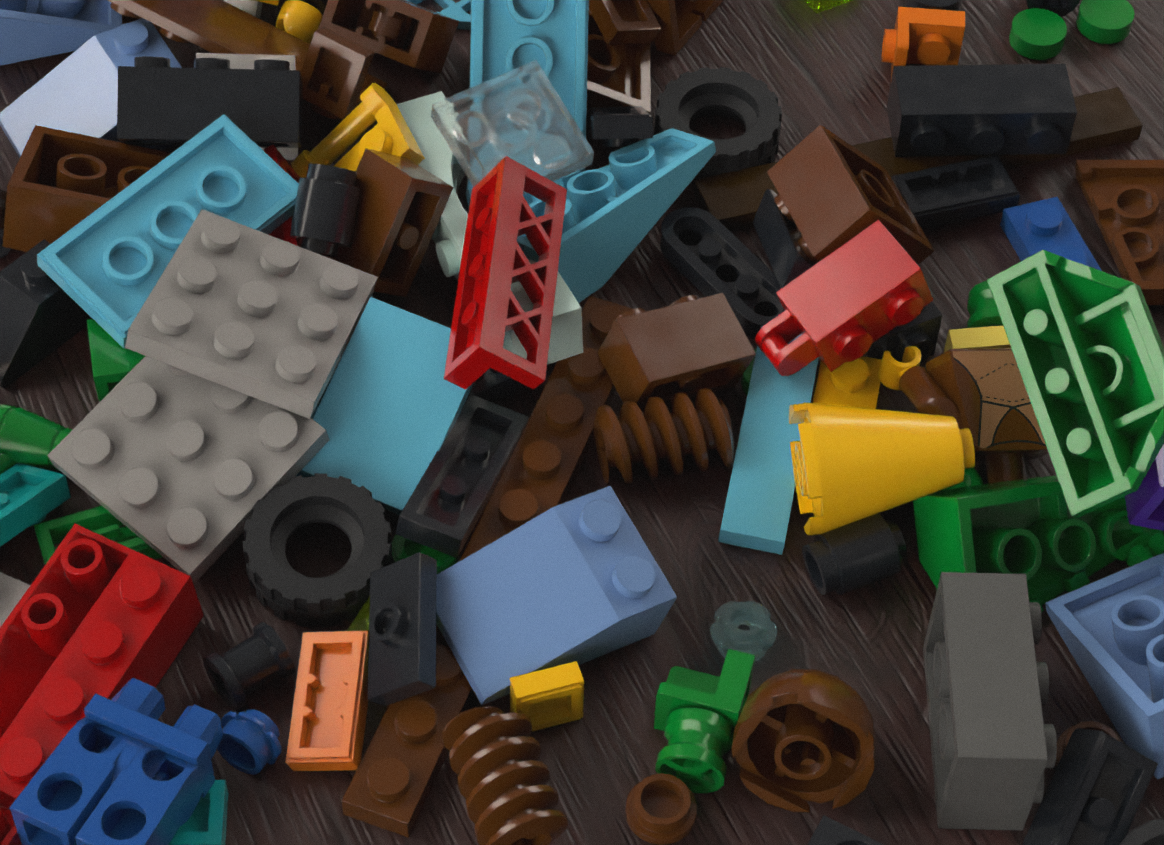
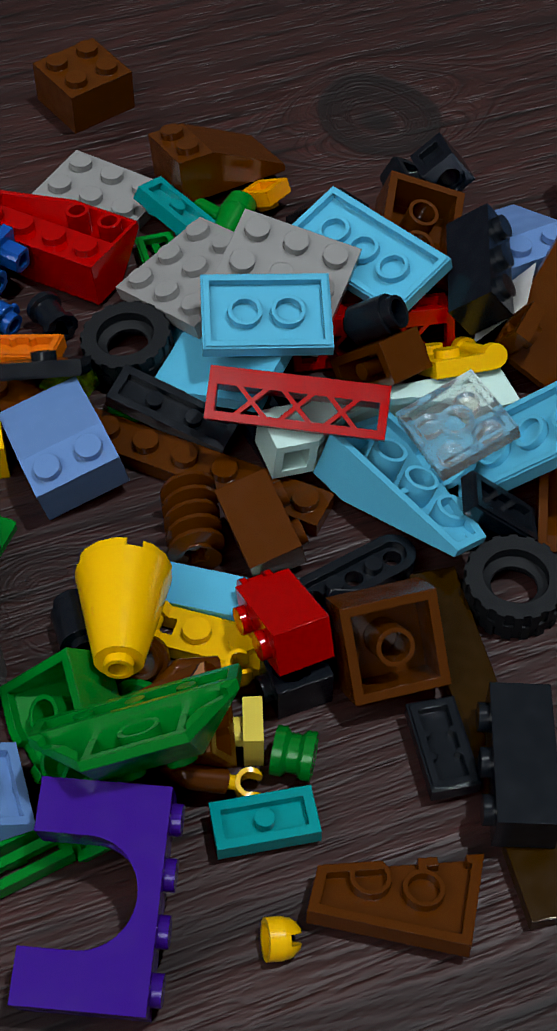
camera: 95 degrees right, 0 degrees up
(343, 314) = (266, 315): none -> medium azure tile
(753, 641) = (36, 568): clear light blue plate -> none
(1045, 227) = (379, 821): blue plate -> none

